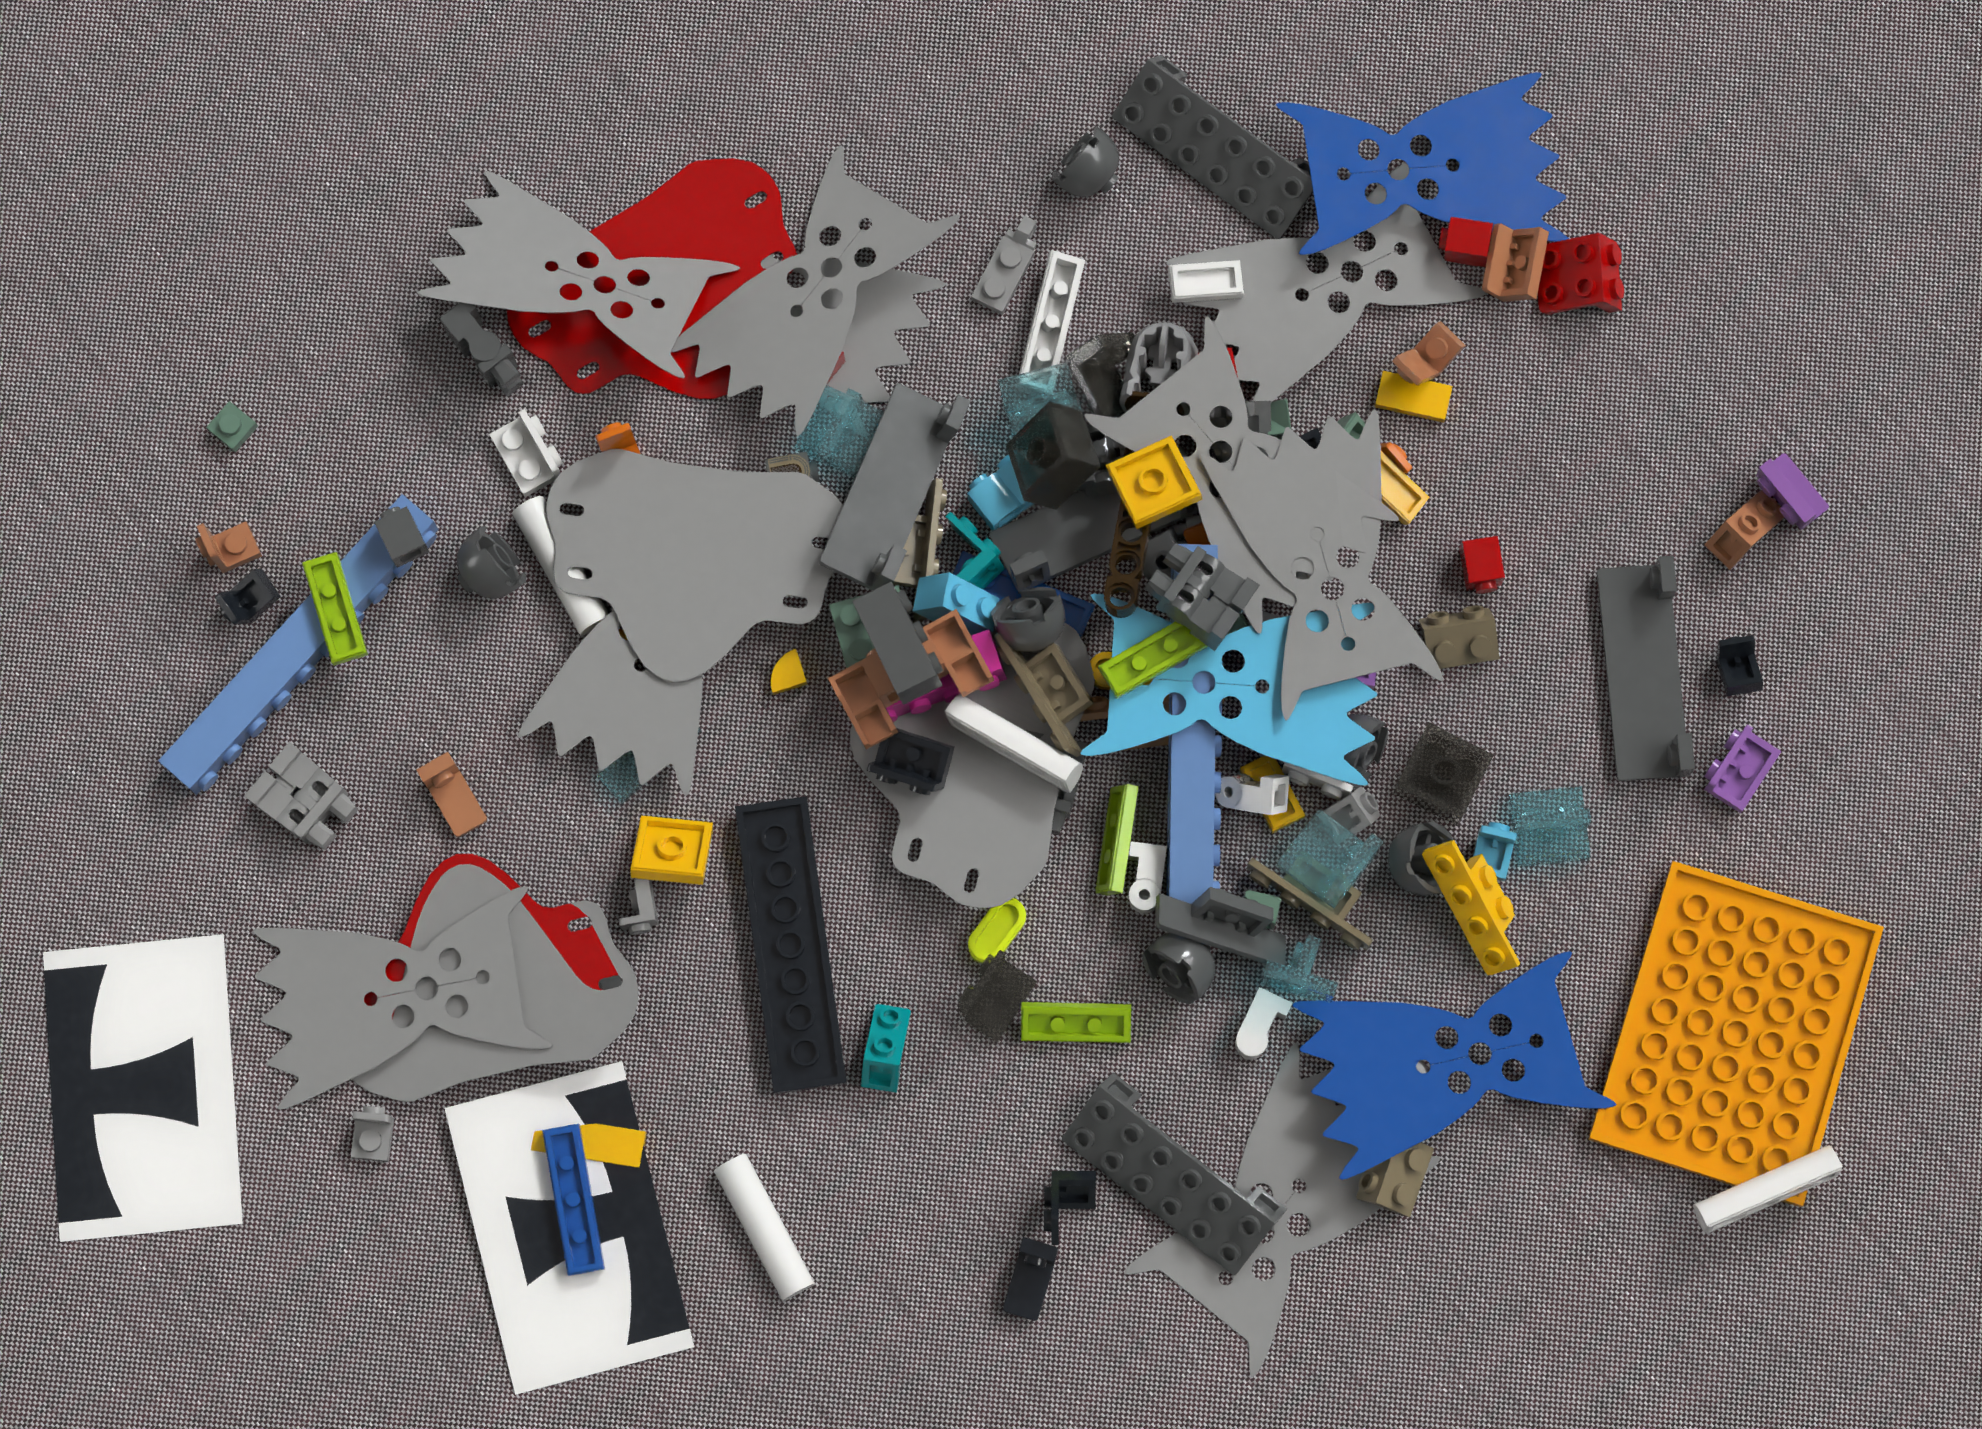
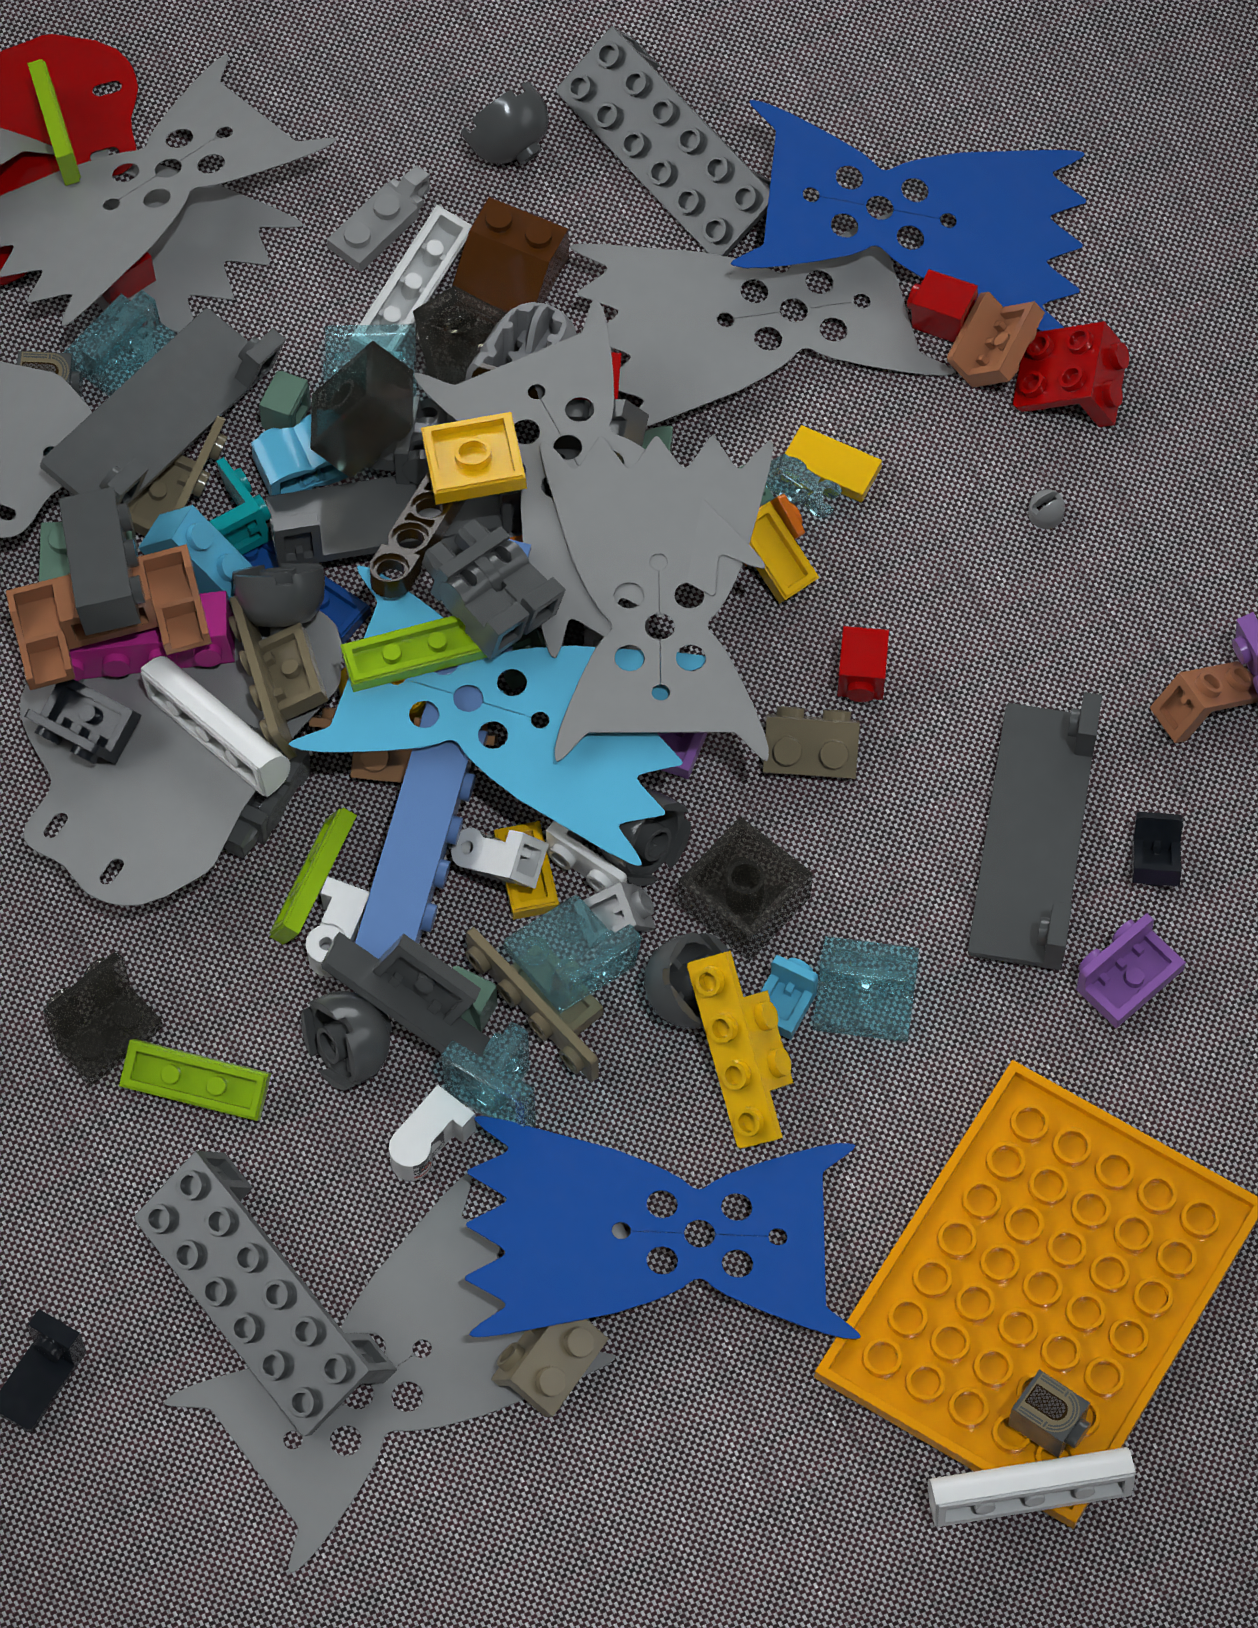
camera: 10 degrees right, 15 degrees down
(729, 248) = (54, 122): none -> lime tile
(981, 450) = (285, 401): none -> sand green slope
(997, 930) = (141, 944): neon yellow tile -> none
(1067, 1191) = (114, 1278): black bracket -> none
(1121, 283) = (511, 256): none -> reddish brown slope
(1205, 281) = (611, 274): white tile -> none
(1394, 424) = (792, 478): none -> clear light blue plate
(1429, 356) = (863, 421): nougat bracket -> none
(1592, 401) = (1051, 514): none -> light grey hinge
(1769, 1134) = (1050, 1415): none -> brick

